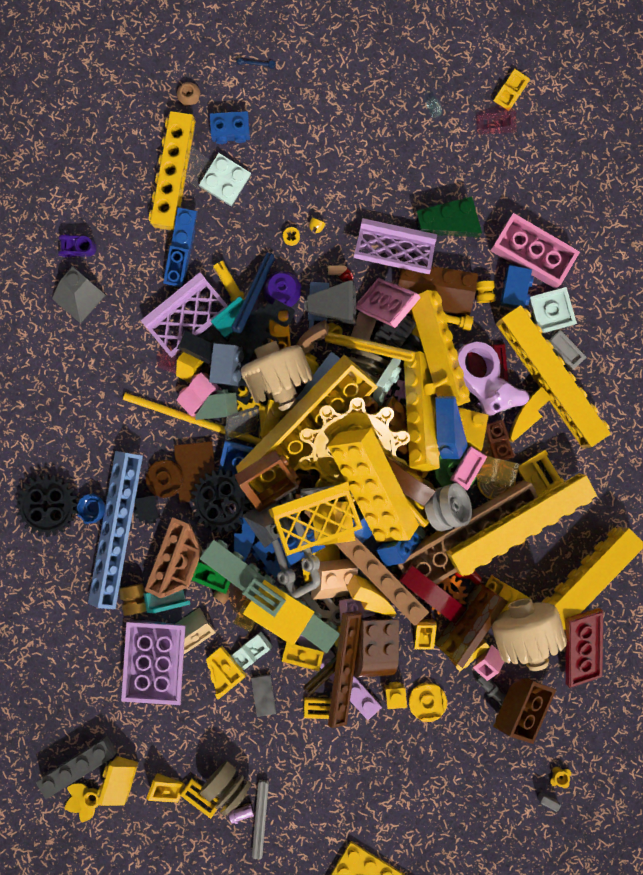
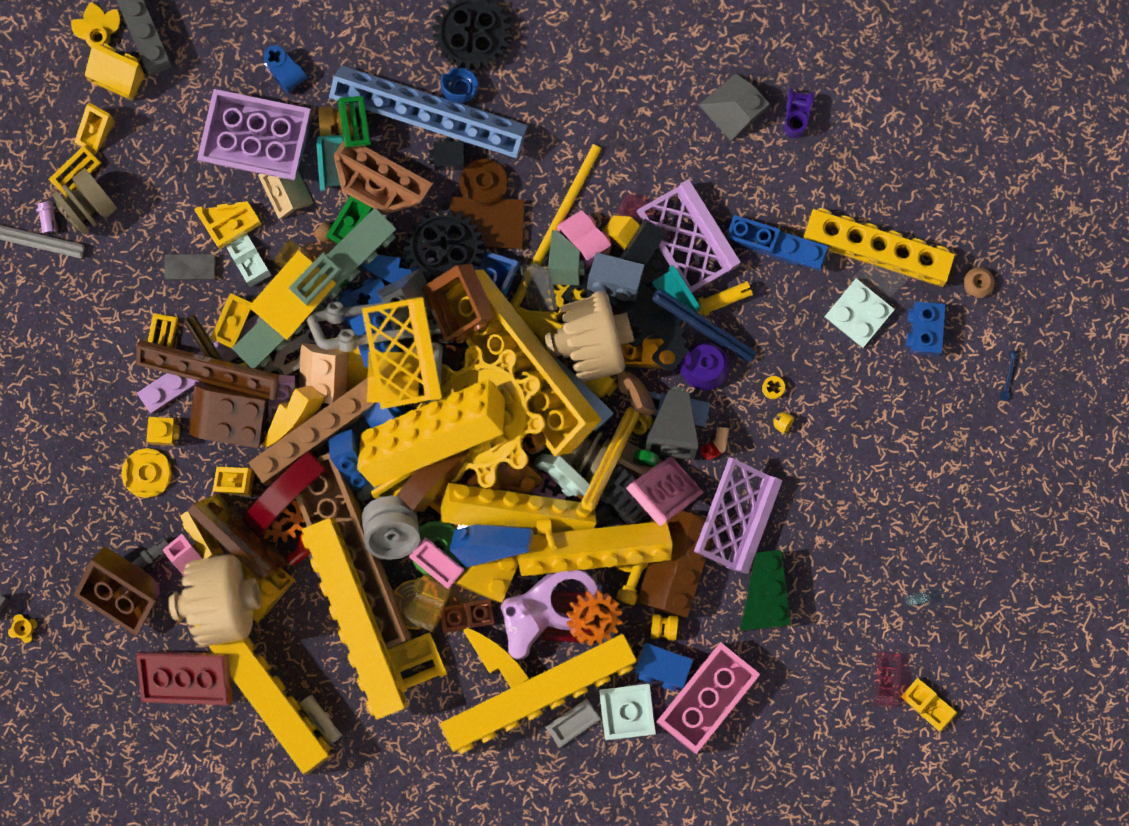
camera: 100 degrees right, 5 degrees down
(98, 645) = (286, 71): none -> blue piece
(134, 593) = (344, 121): none -> green tile
(361, 322) = (645, 458): none -> green tile
(492, 342) = (584, 613): none -> orange gear
(594, 539) = (320, 719): none -> white pin

